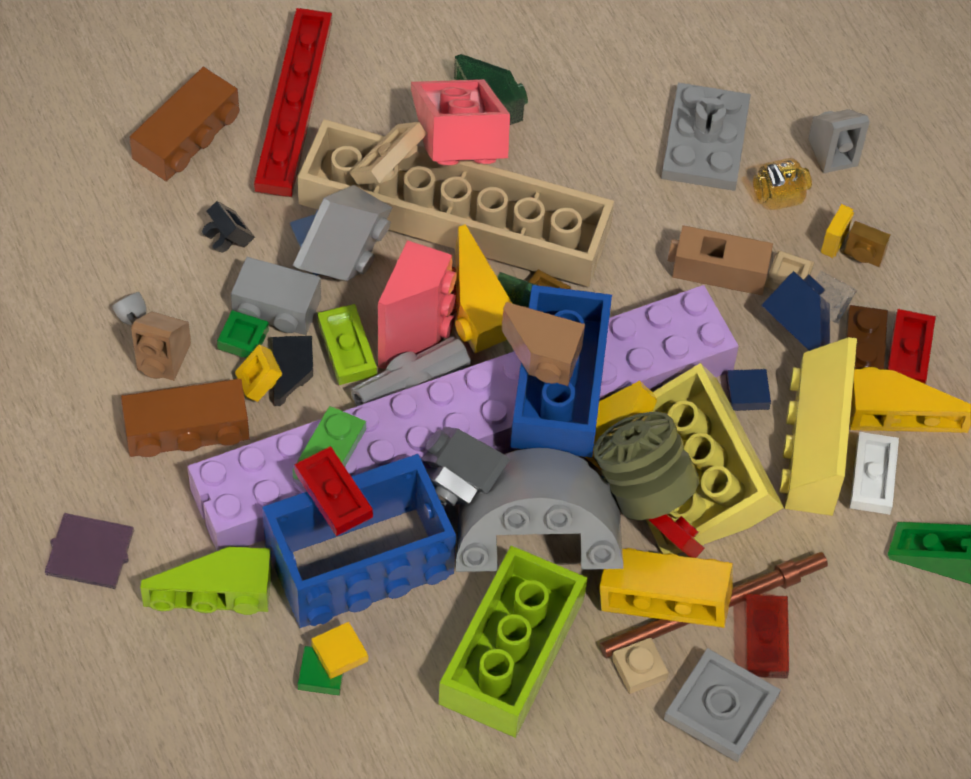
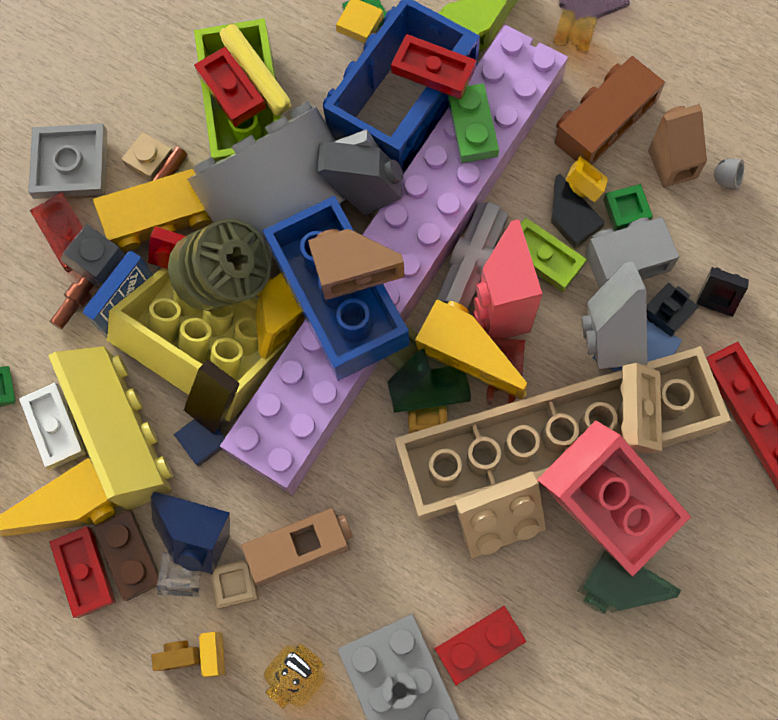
camera: 155 degrees right, 15 degrees up
(145, 509) = (577, 31): none -> clear yellow wheel
(280, 243) = (670, 309): none -> black tile
(489, 625) = (255, 69): none -> light yellow axle
(526, 618) = (230, 86): none -> red plate
(563, 173) = (501, 515): none -> tan plate
(625, 127) = (480, 645): none -> red plate
(721, 380) = (211, 396): none -> dark brown tile
(748, 519) = (123, 280): none -> blue tile
(756, 569) = (92, 256): none -> dark grey slope

